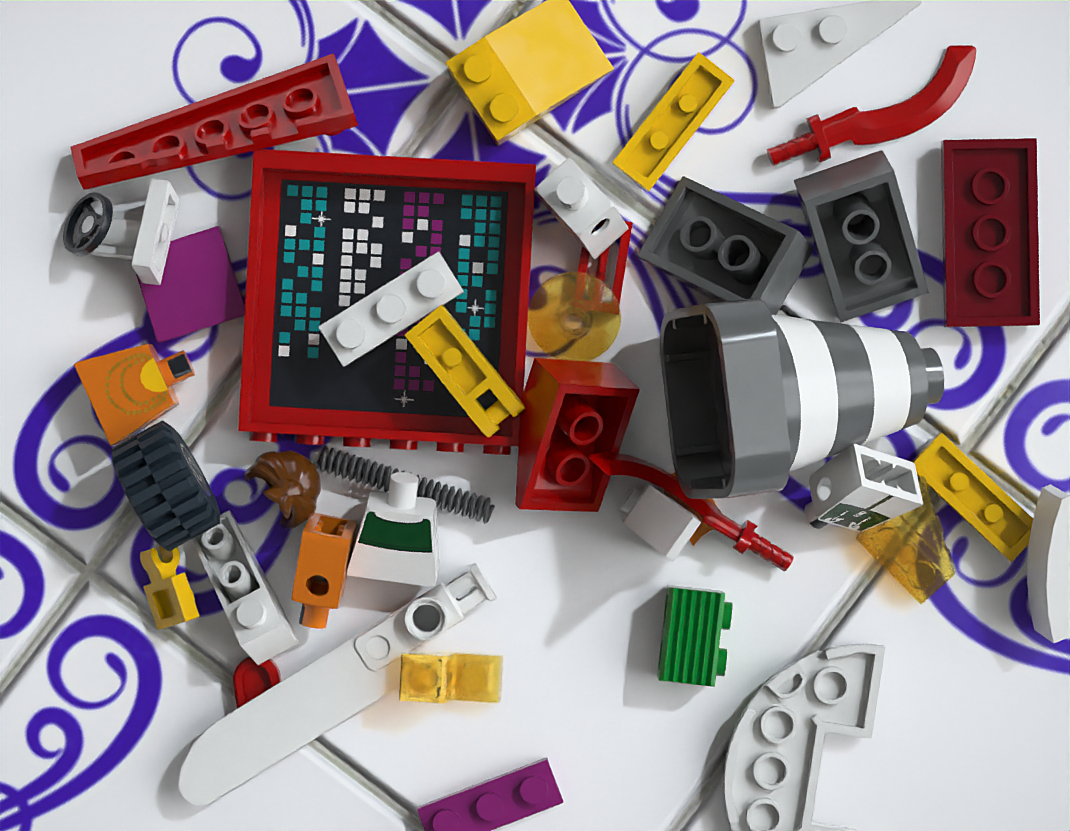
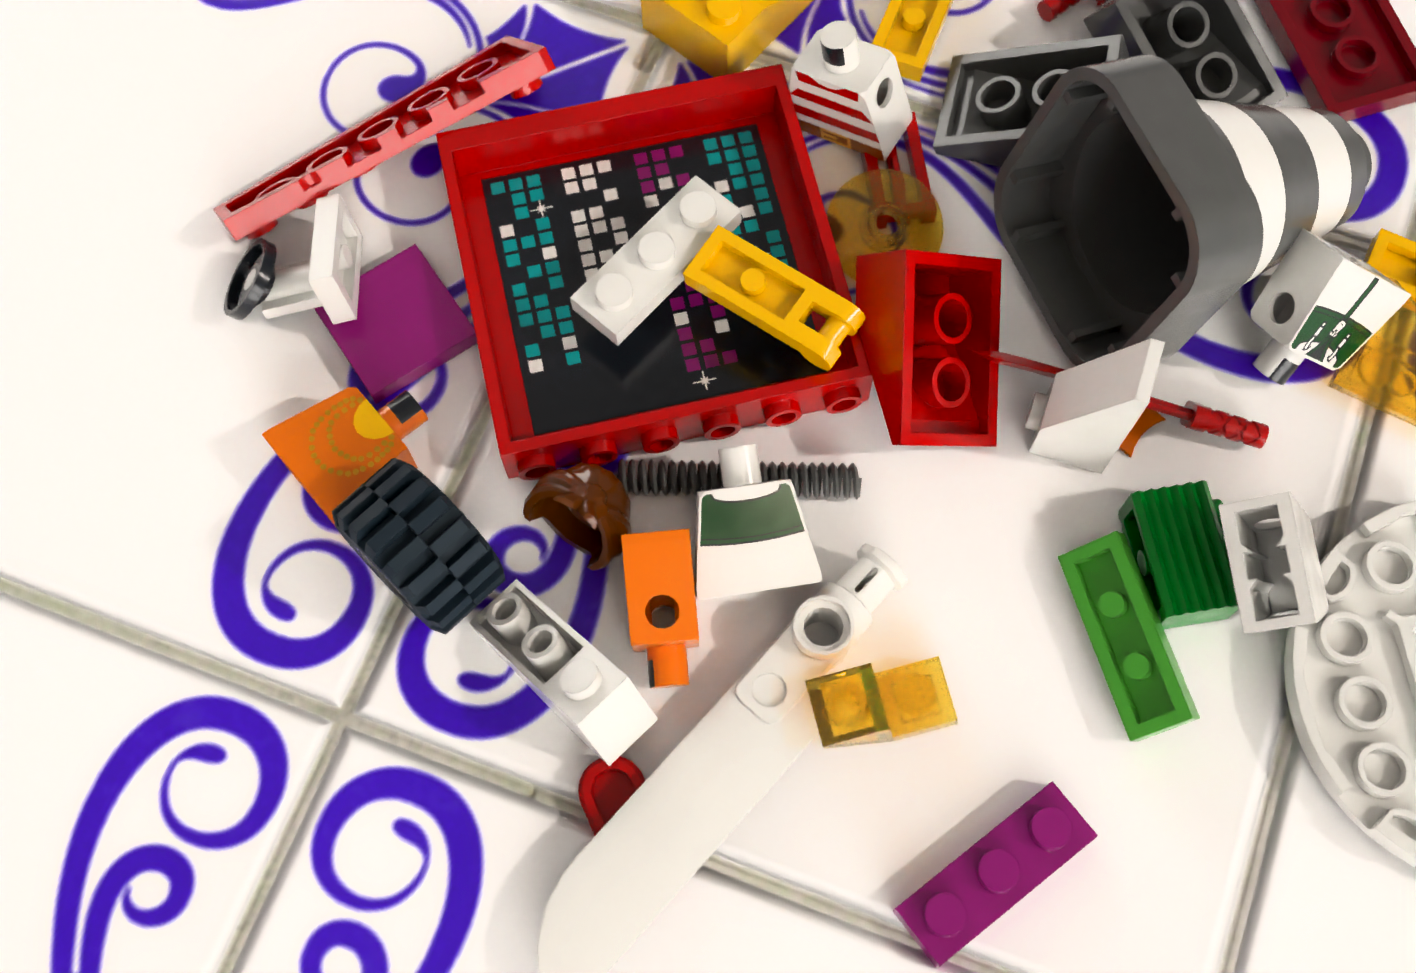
camera: 20 degrees left, 20 degrees down
(168, 593) = (461, 701): yellow plate -> none
(633, 679) = (1128, 637): none -> bright green plate
(737, 676) = (1273, 563): none -> white torso

